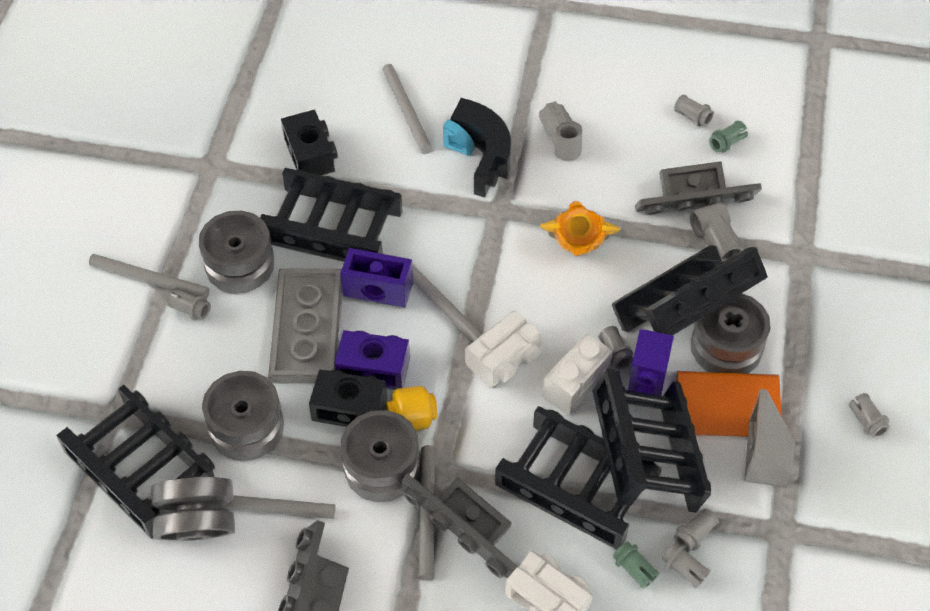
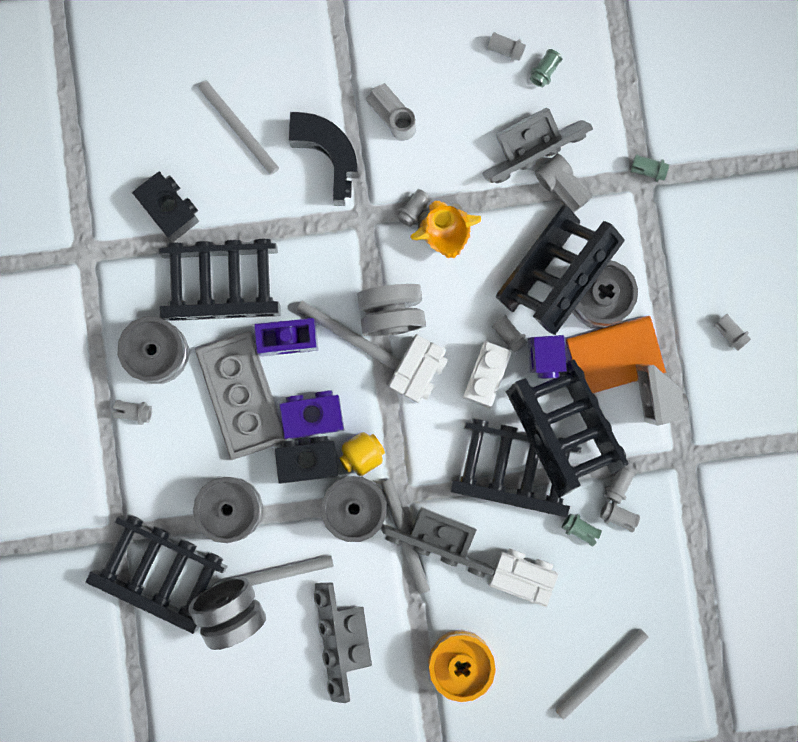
camera: 20 degrees left, 30 degrees up
(147, 275) = (84, 392): light grey bar -> none
(457, 138) = (300, 153): medium azure tile -> none
(496, 279) = (391, 309): none -> light grey wheel
(547, 213) = (413, 209): none -> light grey pin
(815, 243) = (650, 167): none -> sand green pin

